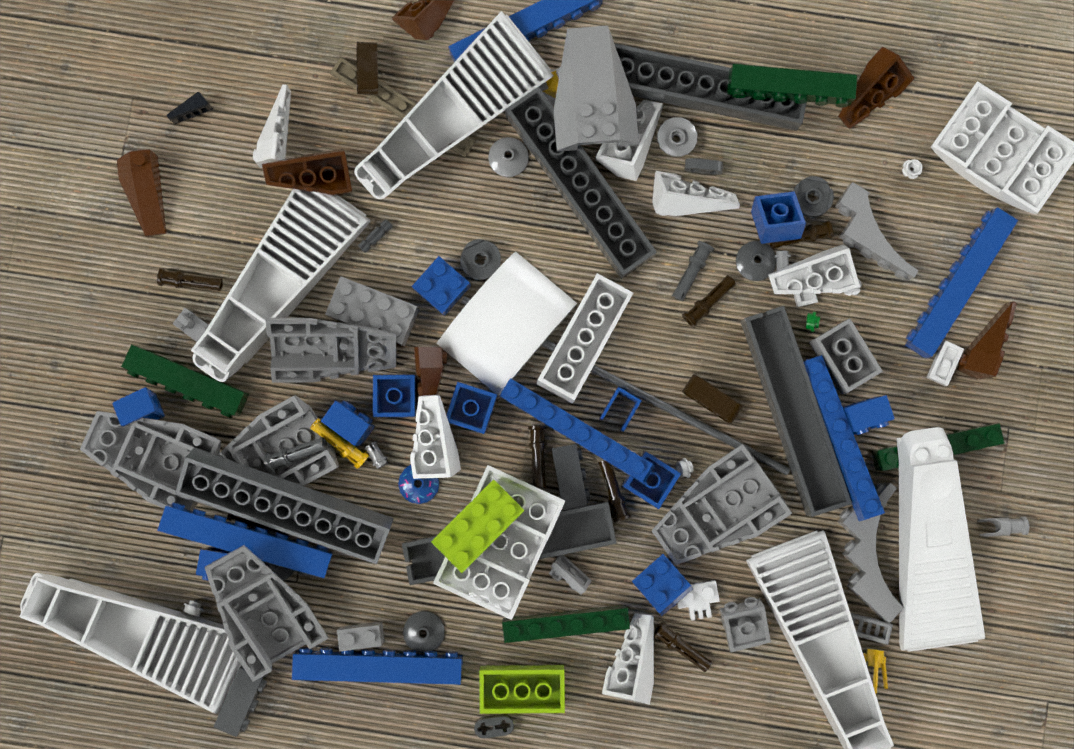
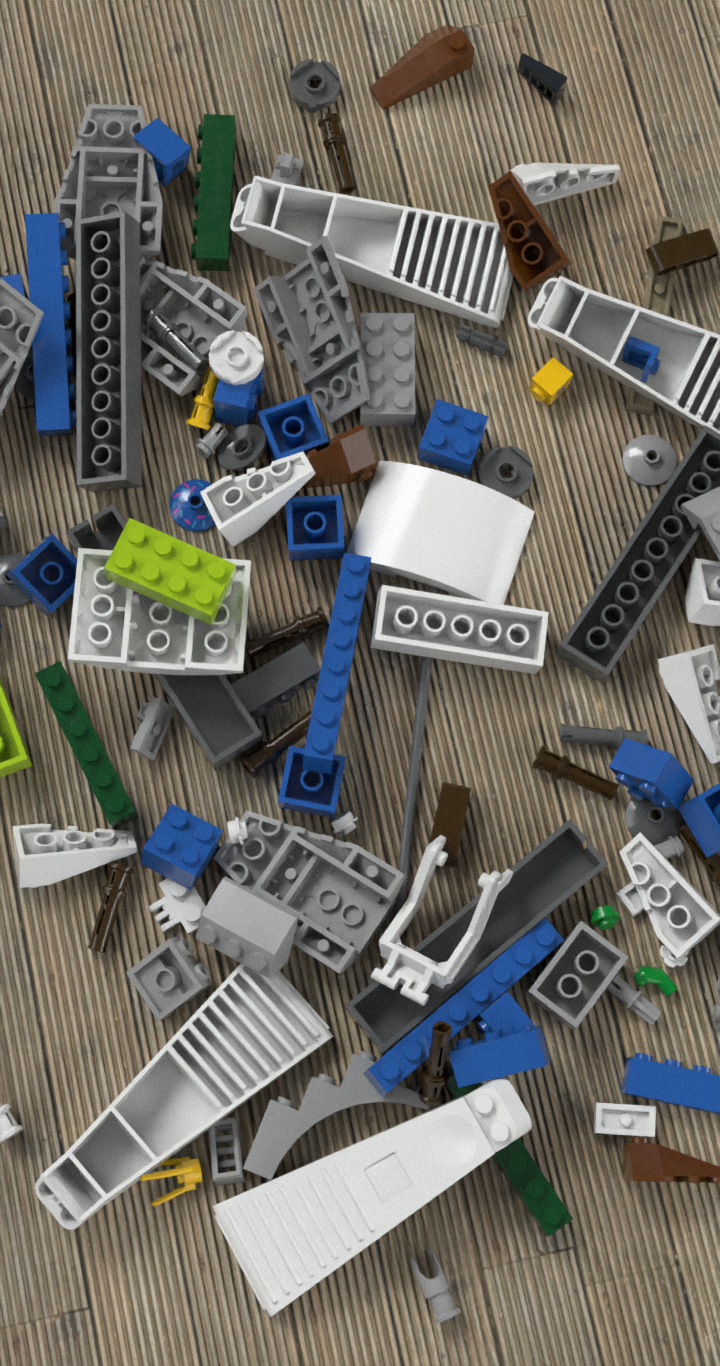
camera: 65 degrees right, 10 degrees down
(117, 270) = (314, 98): none -> dark grey plate
(329, 417) = (236, 357): none -> white tile
(391, 436) = (242, 447): none -> dark grey dish
(426, 201) = (550, 381): none -> yellow brick
(434, 609) = (46, 574): none -> blue brick
(435, 129) = (642, 356): none -> blue bracket
(637, 402) = (389, 695): blue piece -> none
(666, 543) = (237, 831): none -> white plate
(735, 252) = (651, 774): none -> blue brick
(737, 562) = (248, 927): none -> light grey slope
(807, 463) = (414, 969): none -> white piece
(861, 305) = (656, 976): none -> green arm
(875, 323) = (634, 1000): none -> light grey axle
(880, 475) = (435, 1073): none -> dark brown pin
(889, 430) = (499, 1054): none -> blue brick

